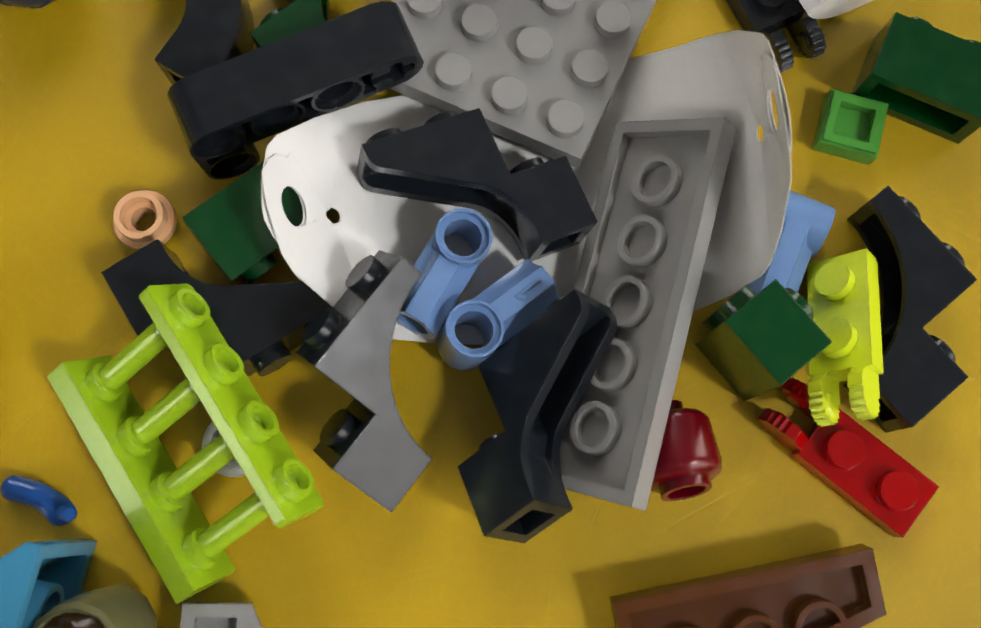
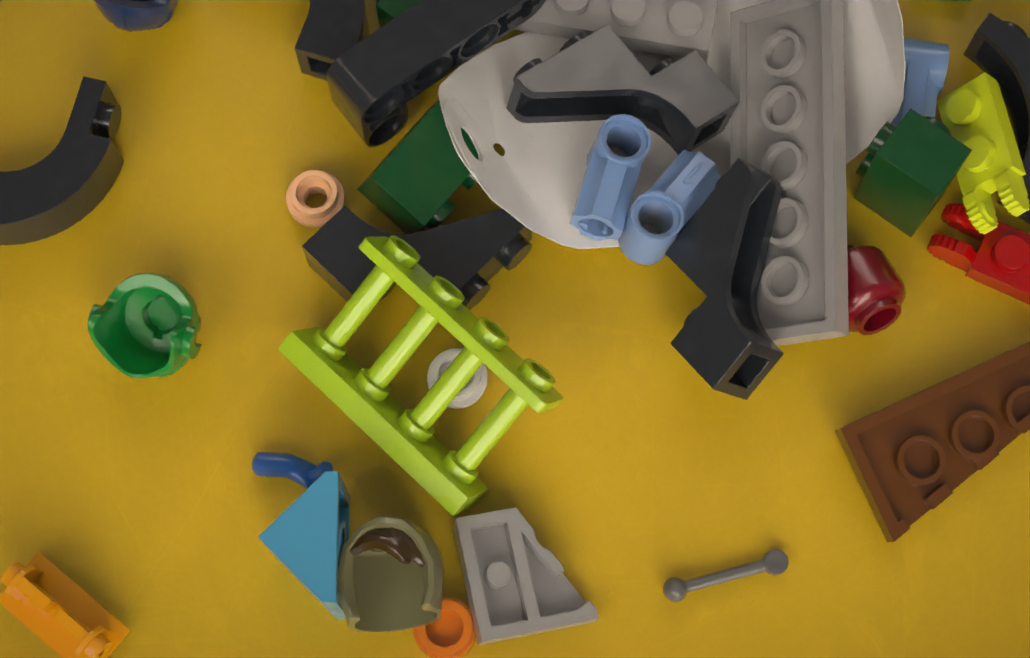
camera: 10 degrees left, 5 degrees down
(353, 350) = (555, 259): arch -> none

